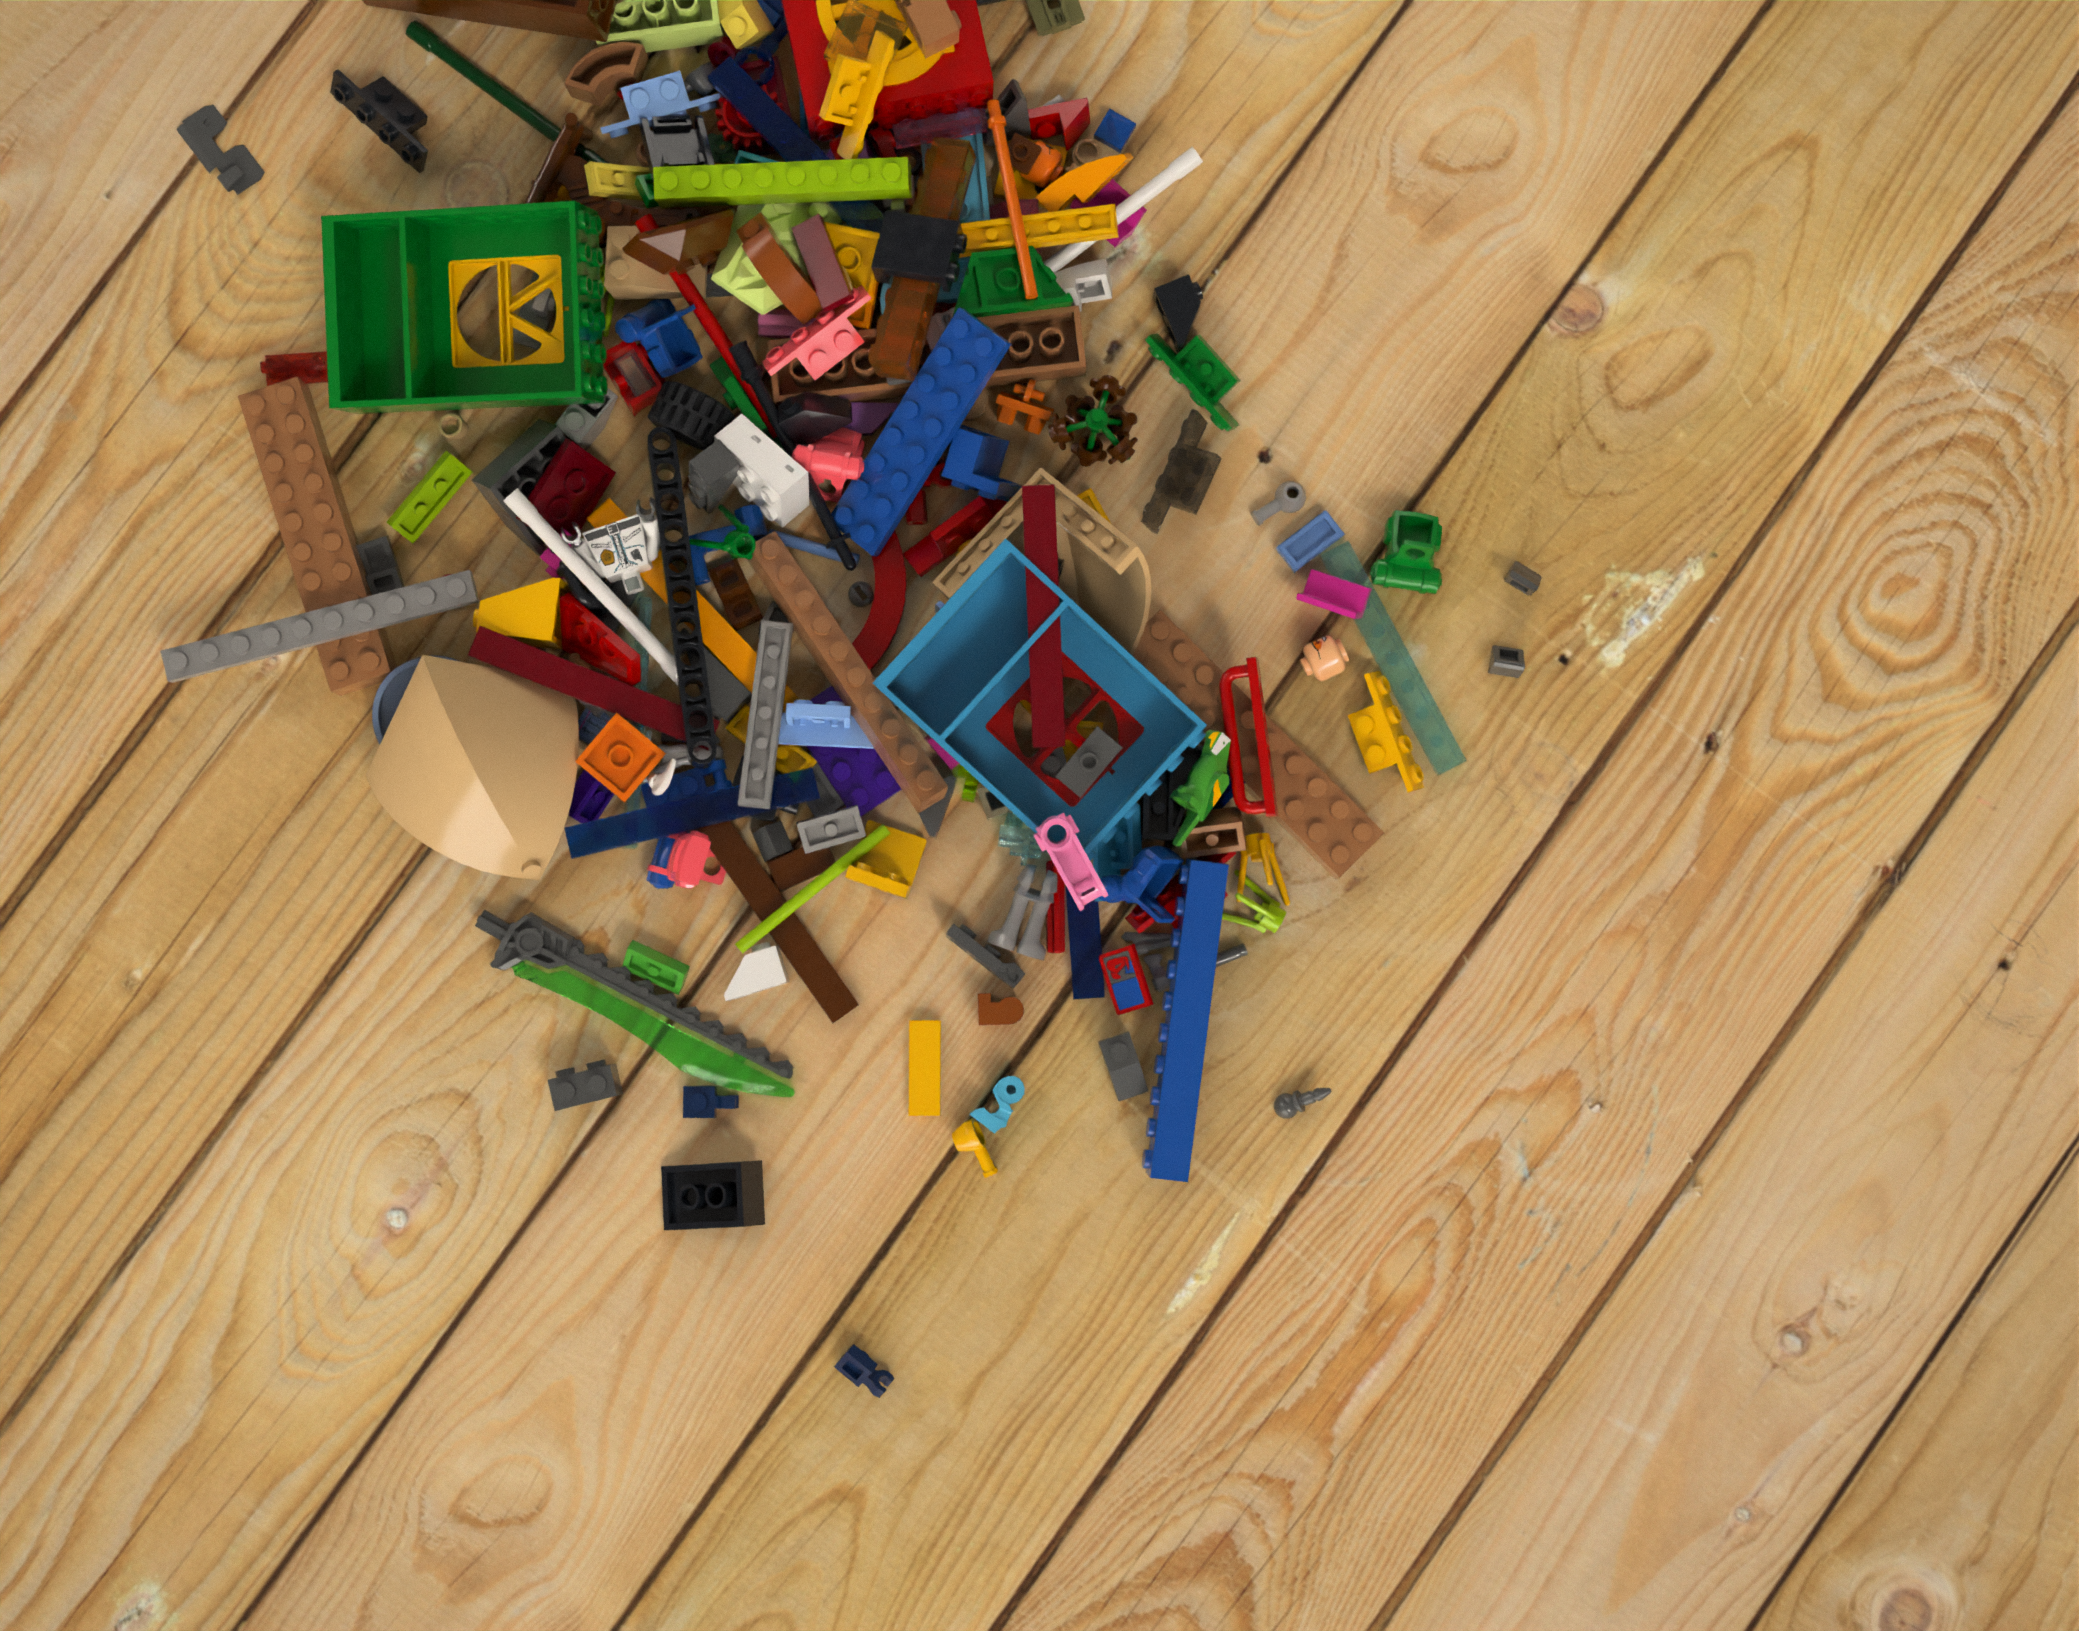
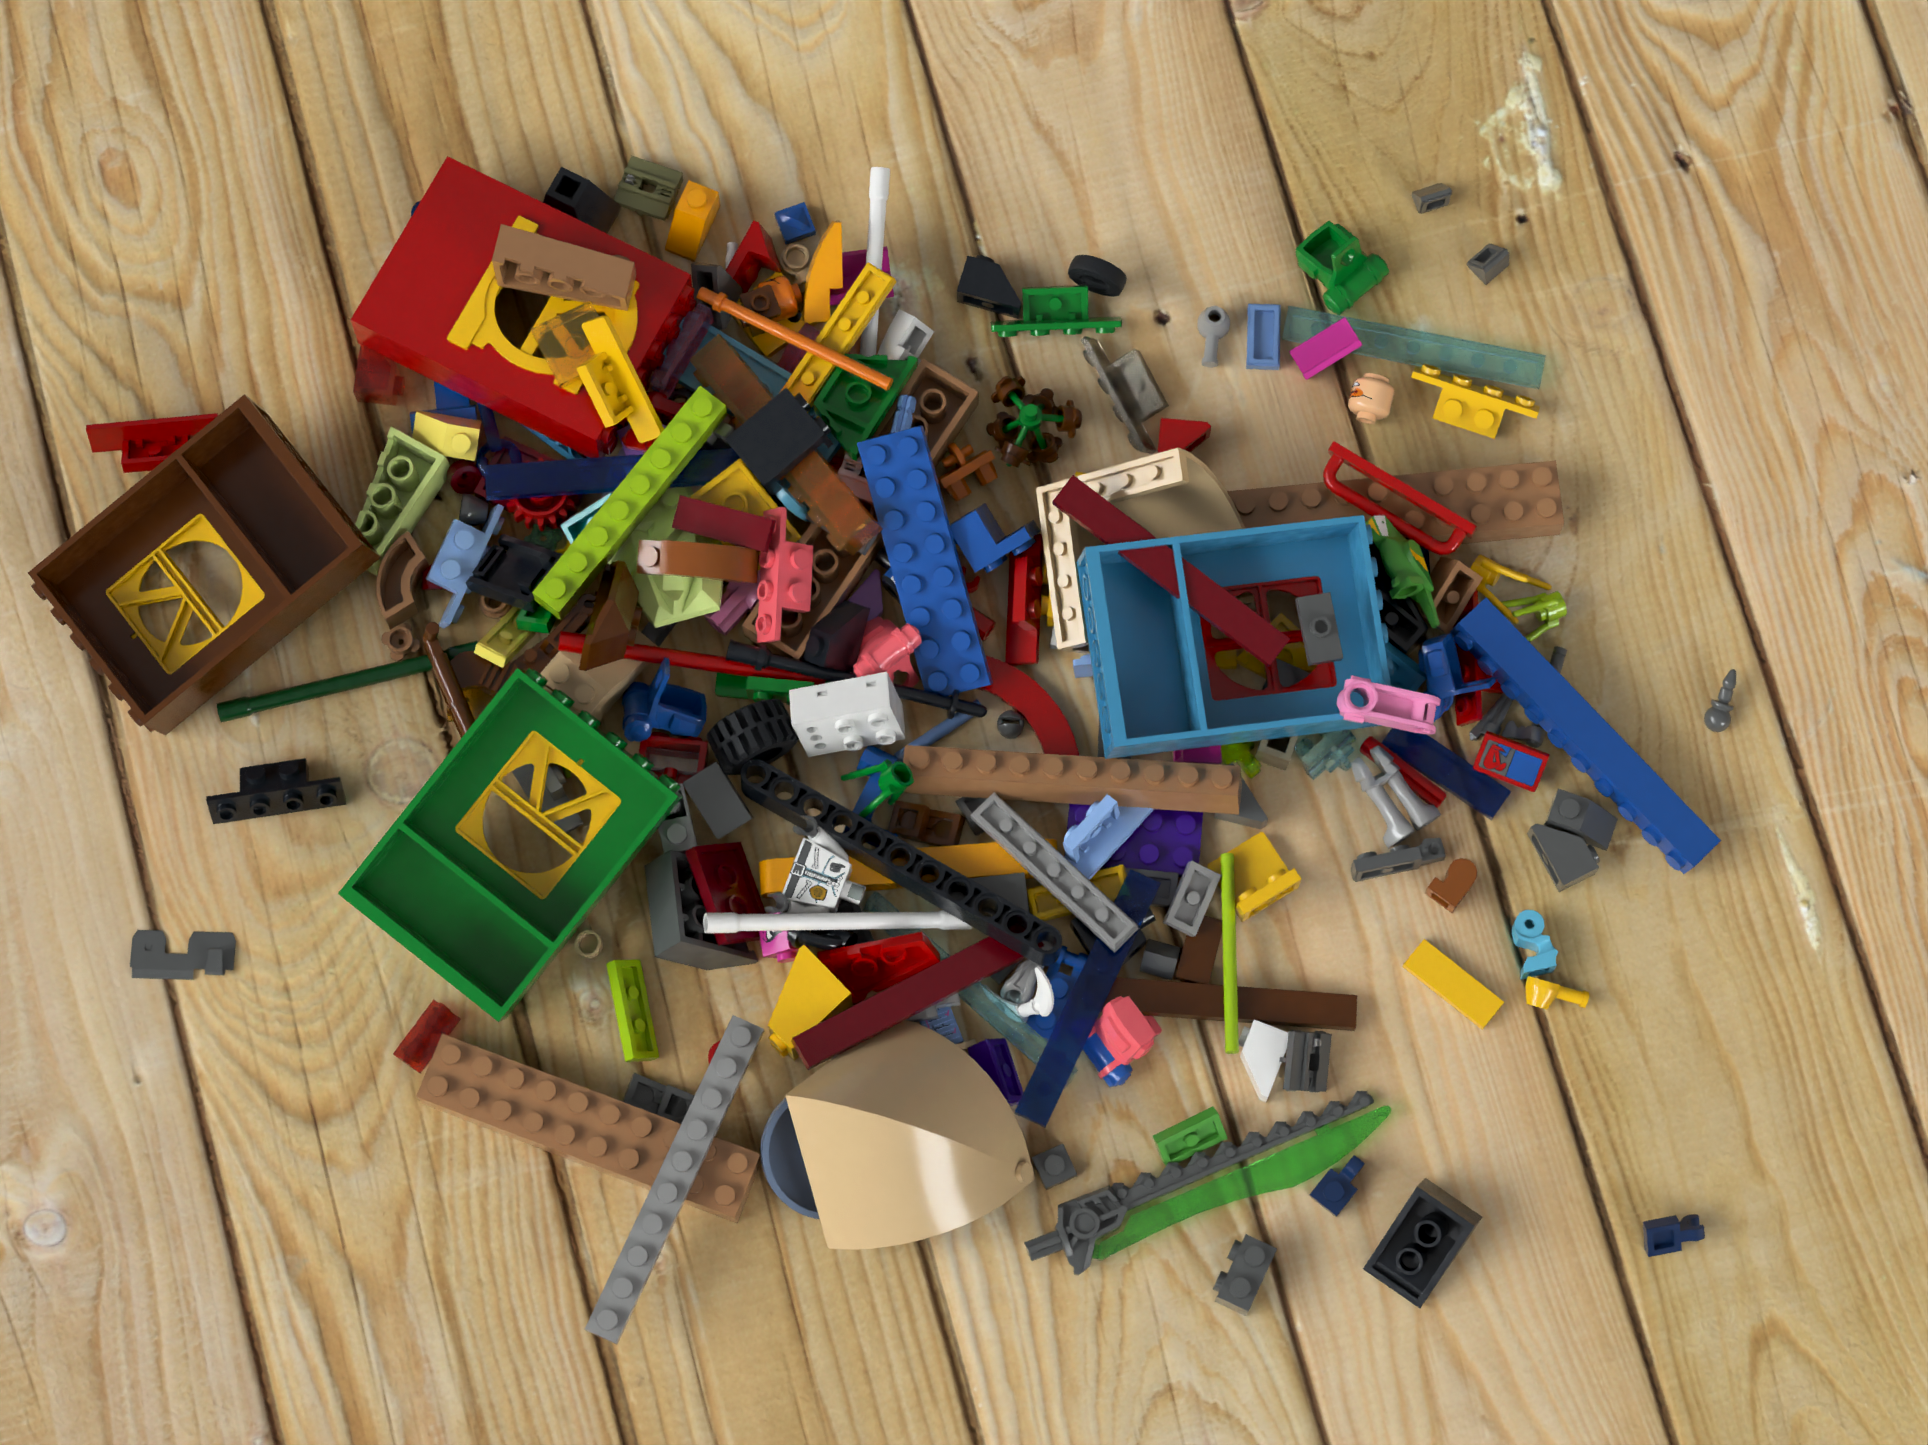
camera: 50 degrees left, 10 degrees down
(559, 887) = (1054, 1166): none -> dark grey plate
(563, 103) = (392, 637): none -> medium nougat plate
(620, 757) = (994, 1016): orange plate -> none
(627, 432) = (717, 800): none -> dark grey panel
(711, 476) = (820, 755): dark grey slope -> none
(776, 1007) = (1307, 1061): none -> dark grey piece
(1017, 328) = (903, 417): none -> medium blue axle
(1053, 54) = (692, 220): none -> light orange slope
(1085, 1076) = (1564, 855): none -> dark grey slope
(1173, 542) = (1182, 434): none -> red slope
(1252, 381) = (1097, 274): none -> black tyre

